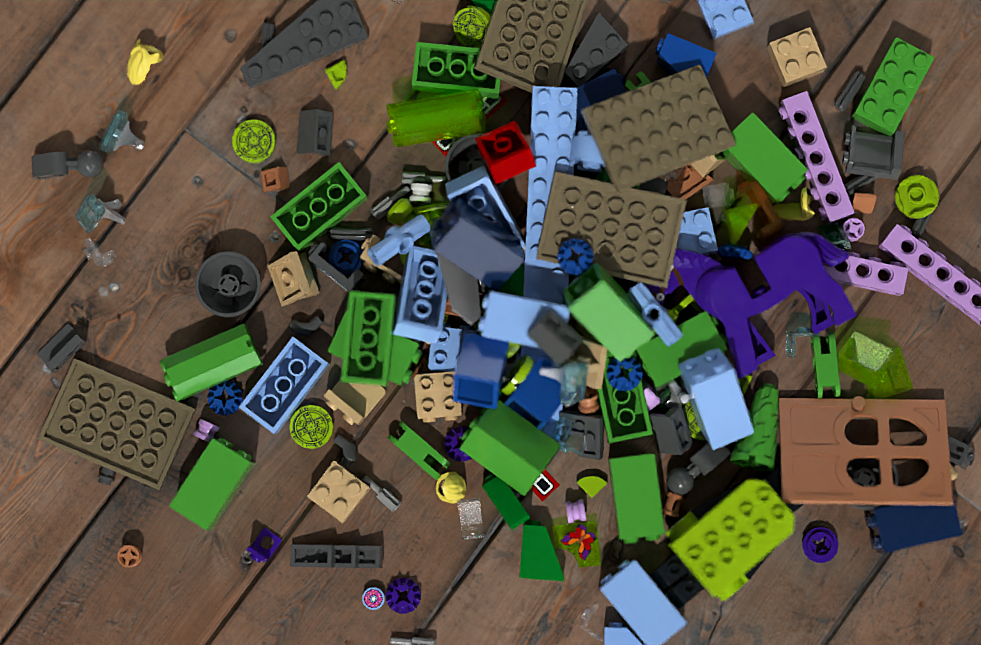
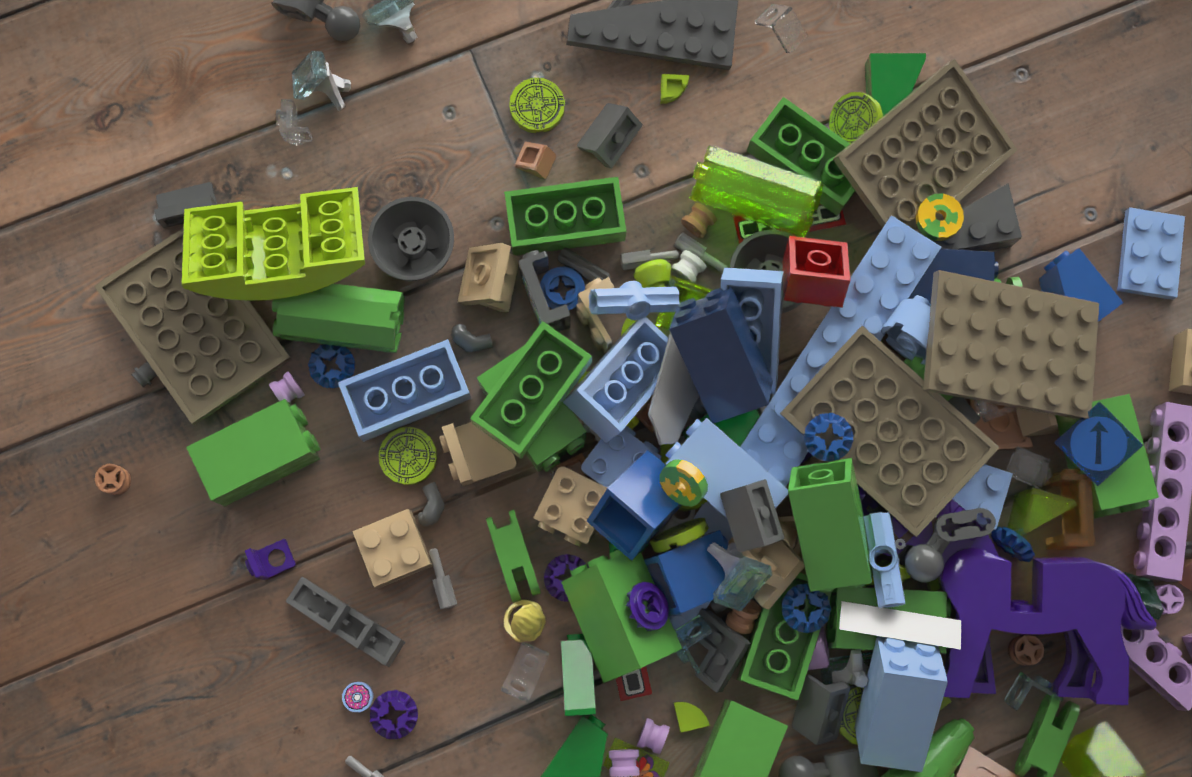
camera: 20 degrees right, 5 degrees down
(142, 343) = (273, 248): none -> lime slope
(409, 157) = (699, 220): none -> nougat wheel
(500, 341) = (683, 482): none -> piece
(528, 427) = (656, 604): none -> dark purple gear
(565, 74) = (944, 205): none -> yellow piece
(566, 538) = (624, 763): none -> lavender wheel
(681, 299) = (926, 561): none -> dark grey beam
(688, 349) = (900, 625): none -> white sticker
(749, 158) = (1098, 443): none -> piece
(784, 312) = (1032, 649): none -> nougat wheel
(796, 211) = (1117, 542): light yellow piece -> none

